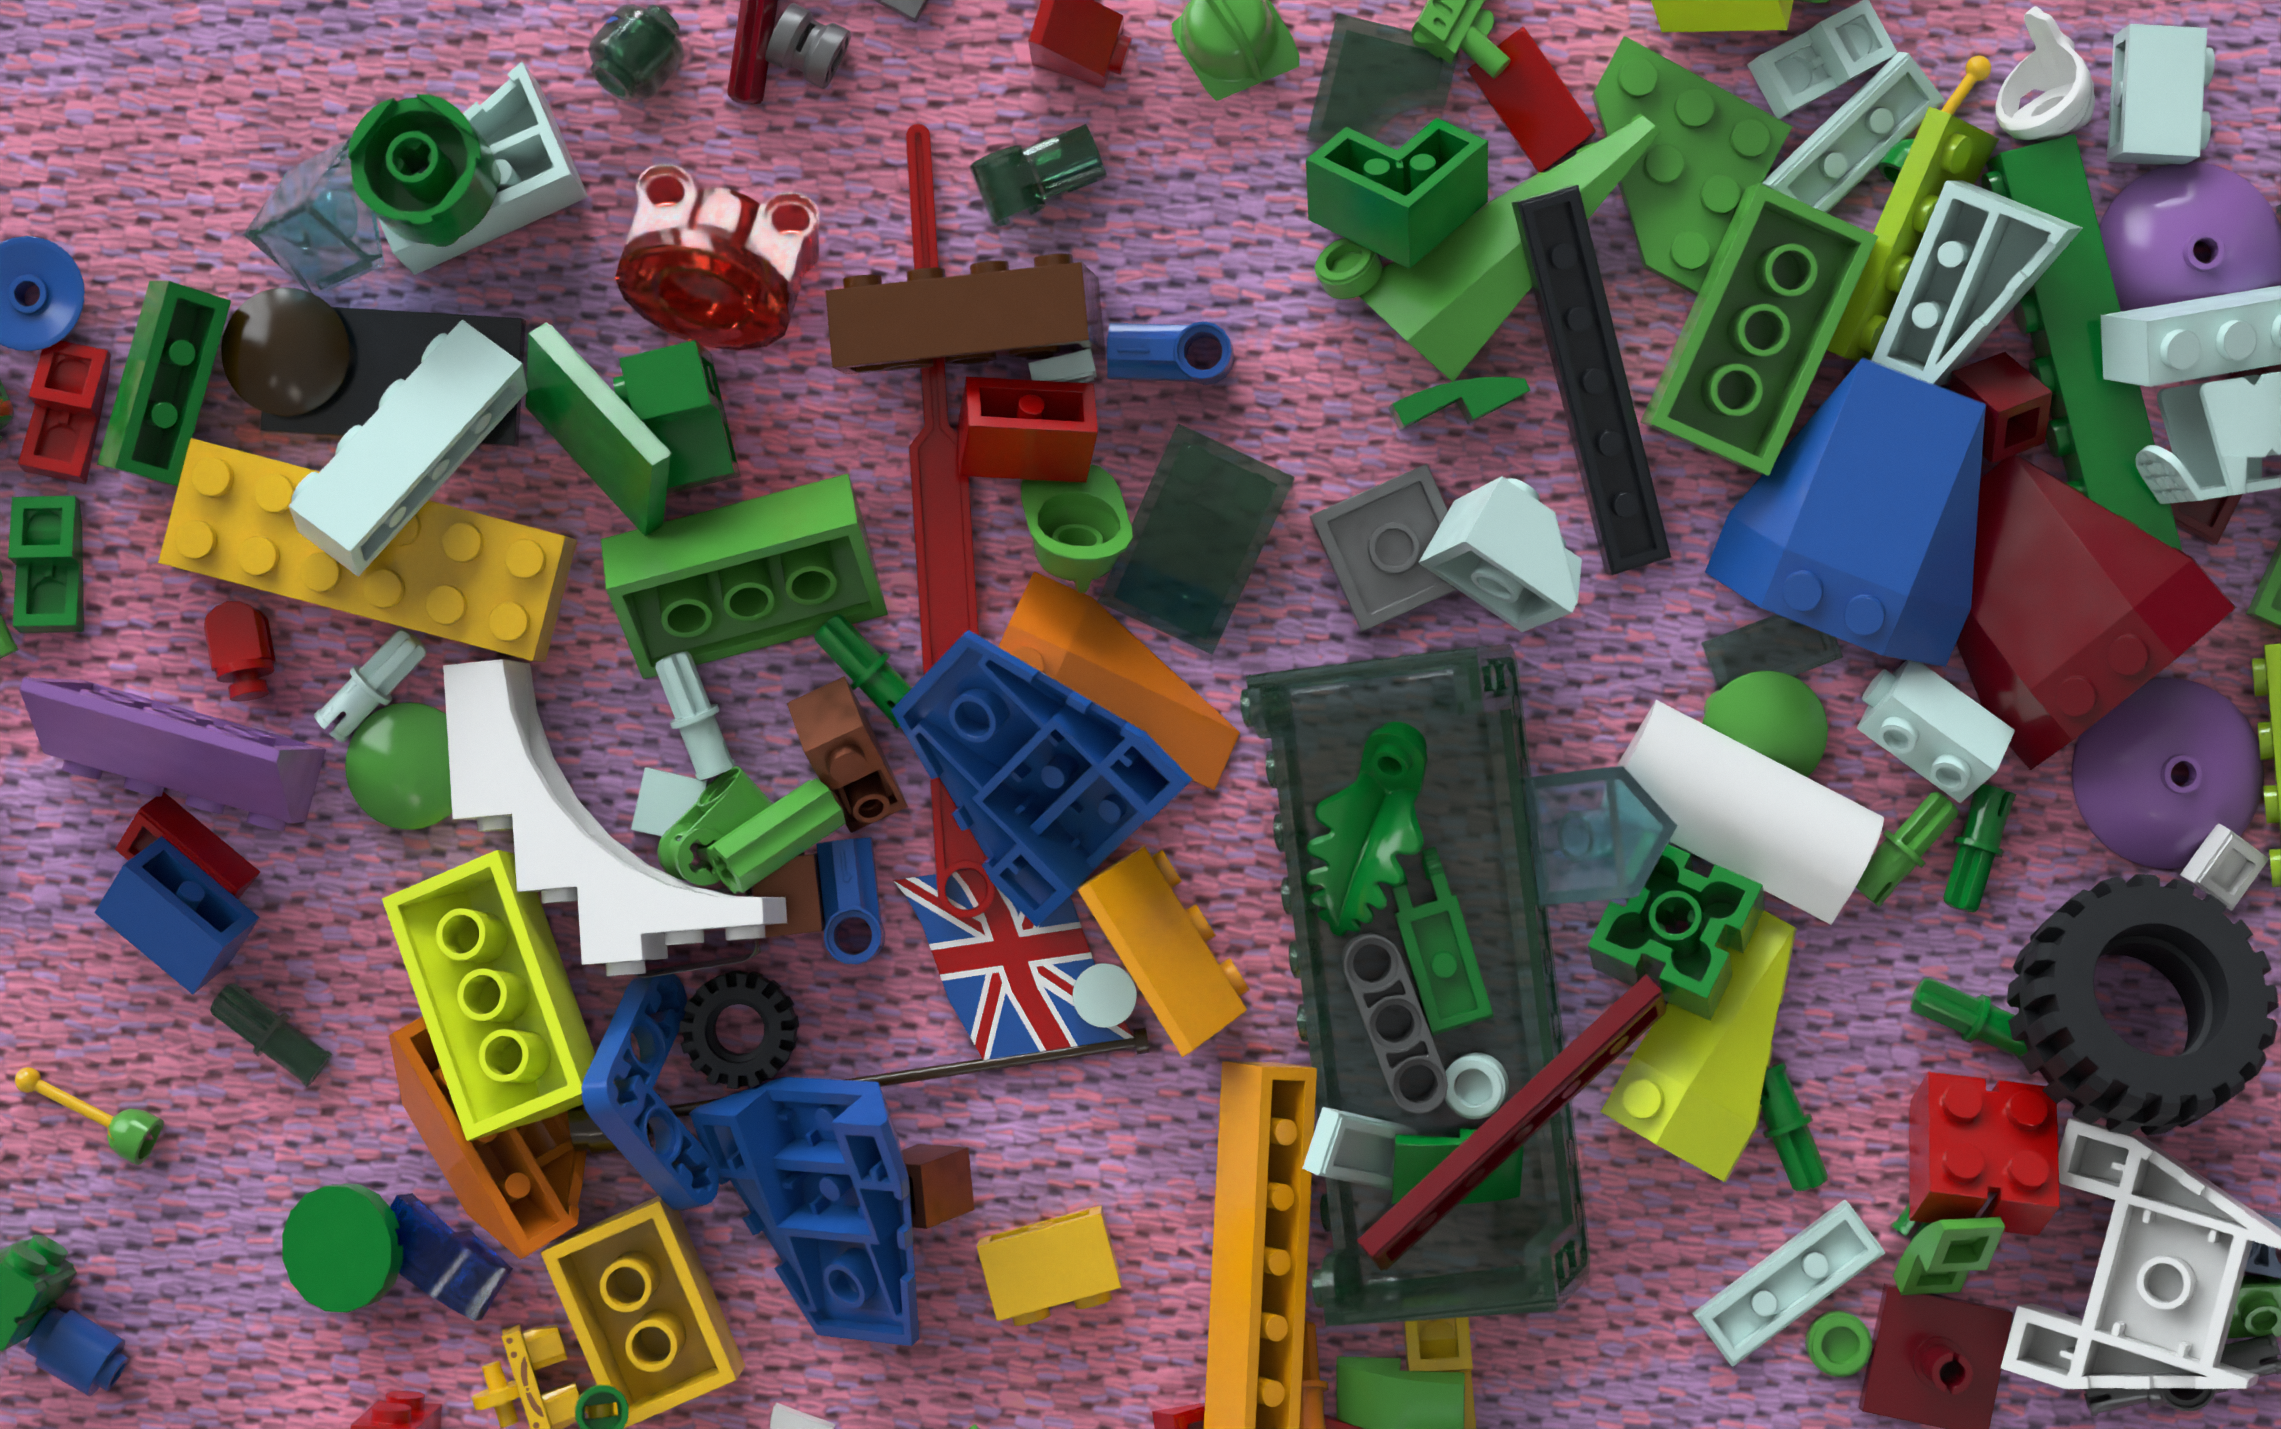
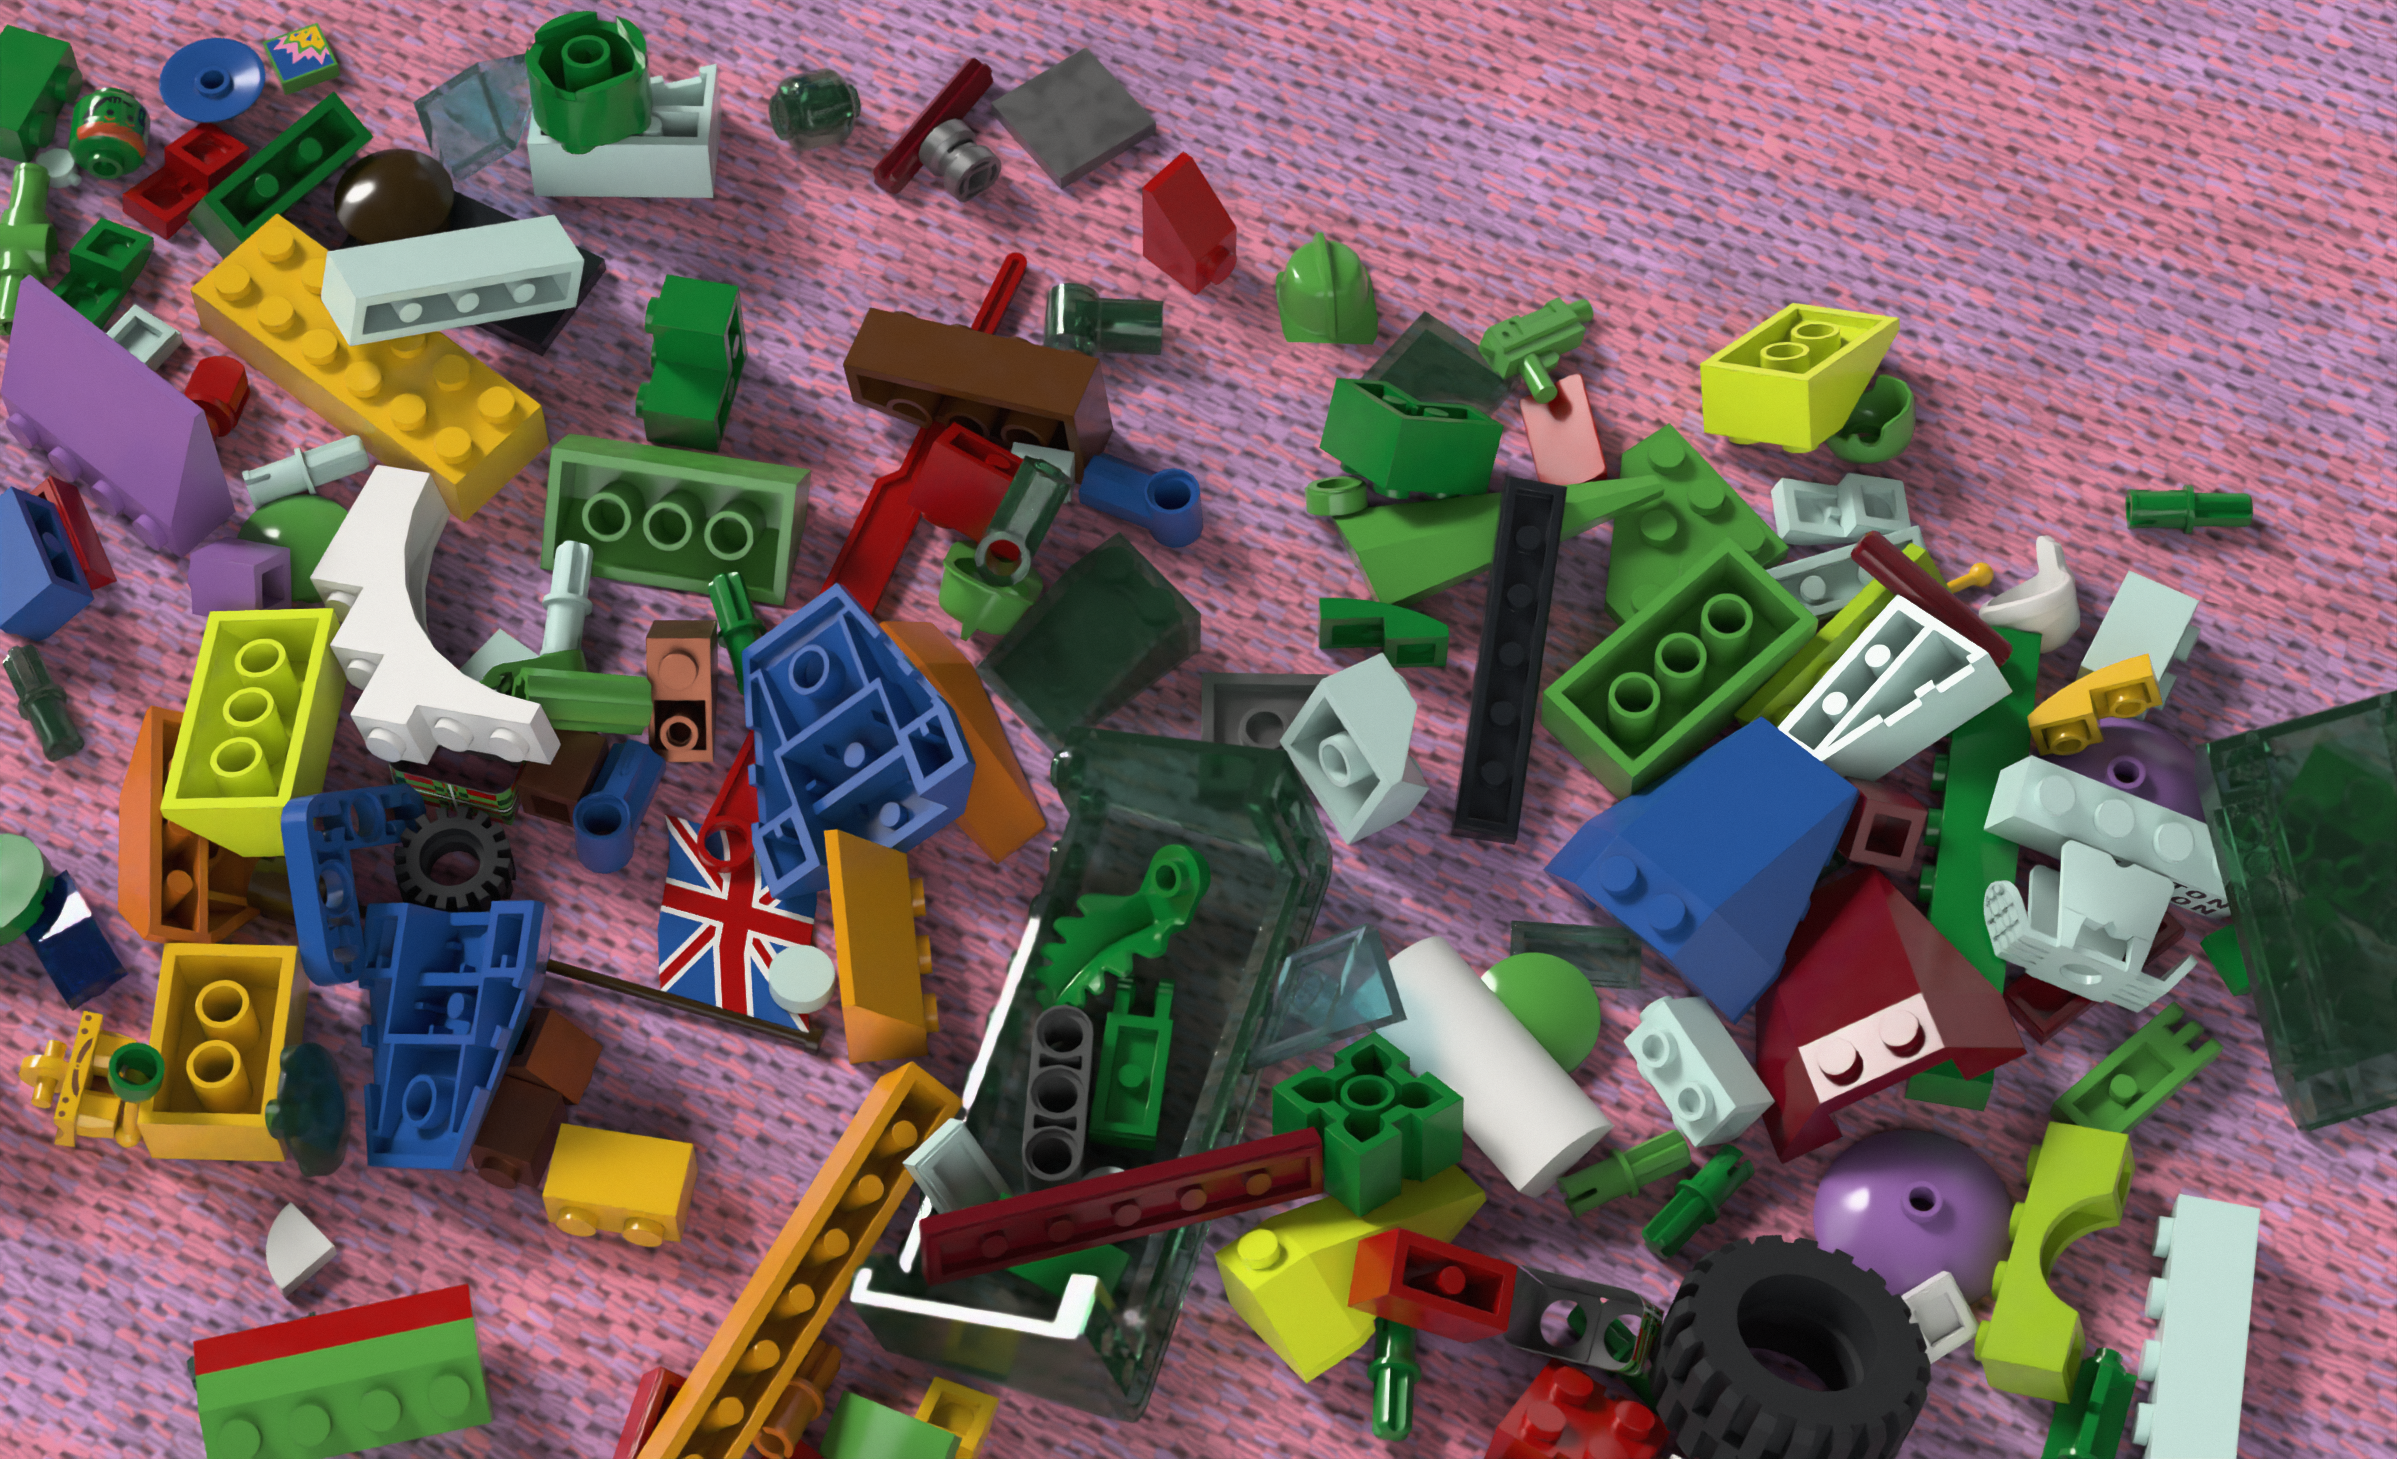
camera: 25 degrees right, 30 degrees down
(94, 217) = (301, 58): none -> tile
(130, 614) = (146, 337): none -> light aqua tile
(385, 842) = (239, 577): none -> medium lavender brick
(597, 428) = (617, 337): green tile -> none
(716, 260) = (793, 268): clear red piece -> none
(751, 1331) = (311, 1109): none -> dish
(942, 1264) = (518, 1134): none -> copper brick
(1089, 470) = (1022, 518): none -> clear green piece
(1807, 1067) = (1432, 1285): none -> red brick
(1924, 1059) = (1533, 1298): none -> flat silver piece
(1975, 168) = (1911, 582): none -> dark red axle
(2140, 221) = (2073, 715): none -> yellow slope

